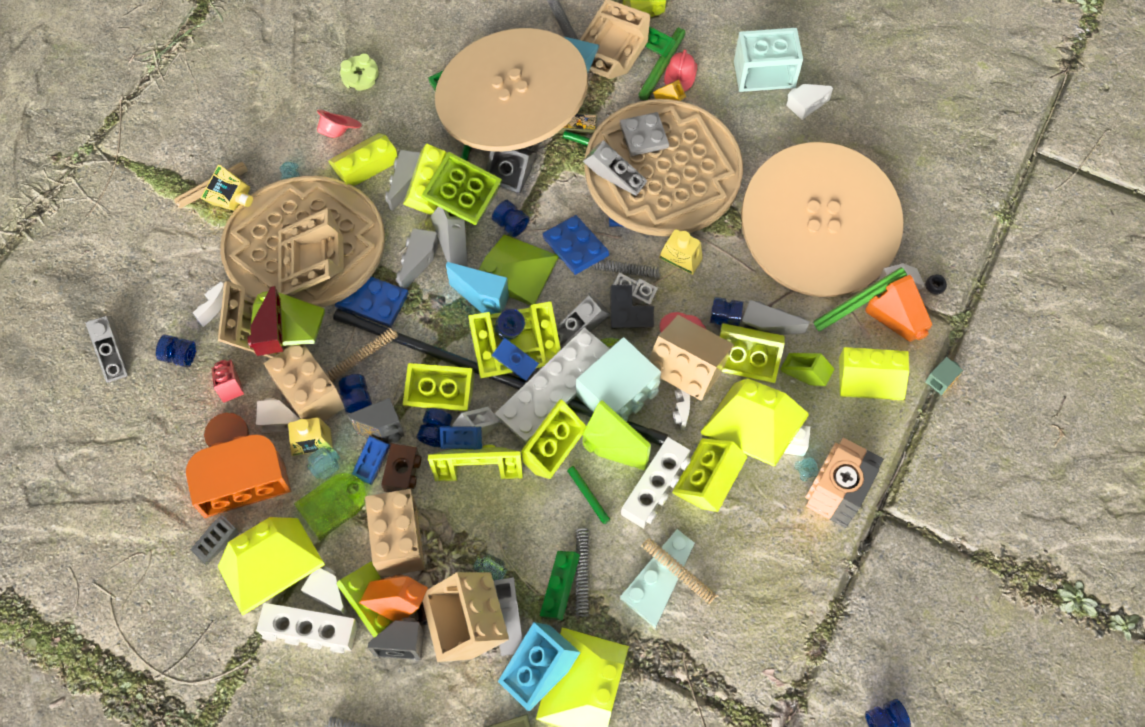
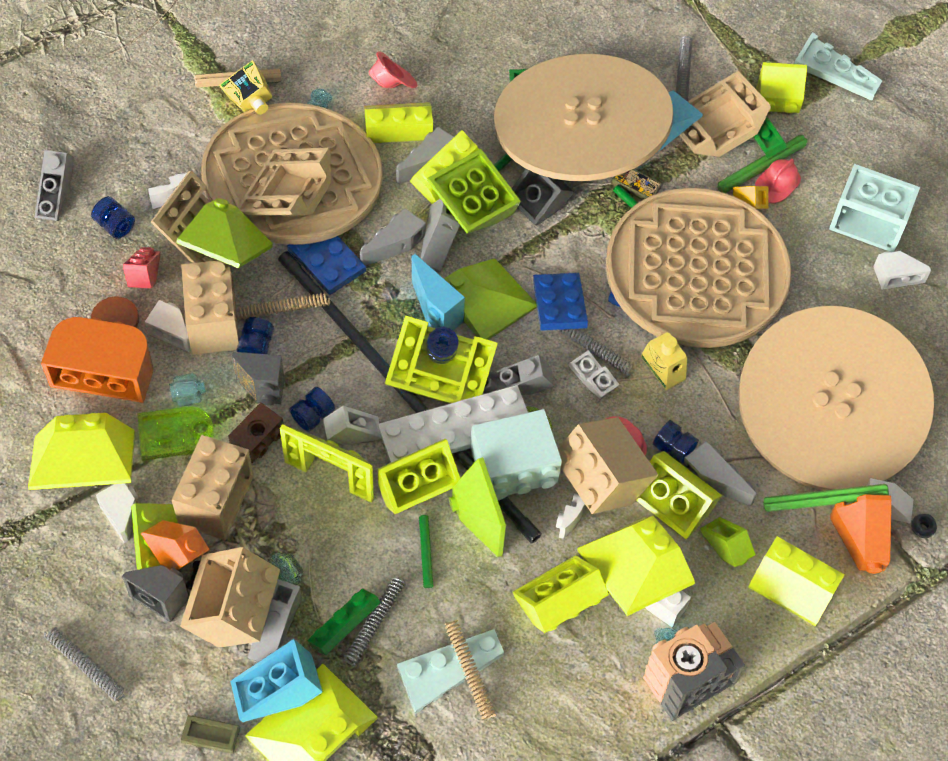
camera: 25 degrees right, 5 degrees down
(215, 528) = (53, 400): dark grey slope -> none
(267, 326) = (203, 229): dark red slope -> none
(274, 615) = (58, 507): white brick -> none
(309, 436) = (188, 356): light yellow torso -> none
(359, 63) = (445, 24): yellowish green plate -> none
(371, 459) = (233, 409): blue plate -> none
(438, 387) = (339, 372): neon yellow slope -> none
(461, 437) = (329, 429): blue plate -> none
(508, 216) = (509, 244): clear blue wheel -> none
(515, 359) = (428, 382): blue plate -> none
(614, 168) = (642, 244): light grey slope -> none
(624, 314) = (567, 390): black brick -> none
(644, 134) = (695, 223): light grey plate -> none
(671, 453) = (529, 550): white brick -> none
(944, 375) = (873, 621): sand green brick -> none

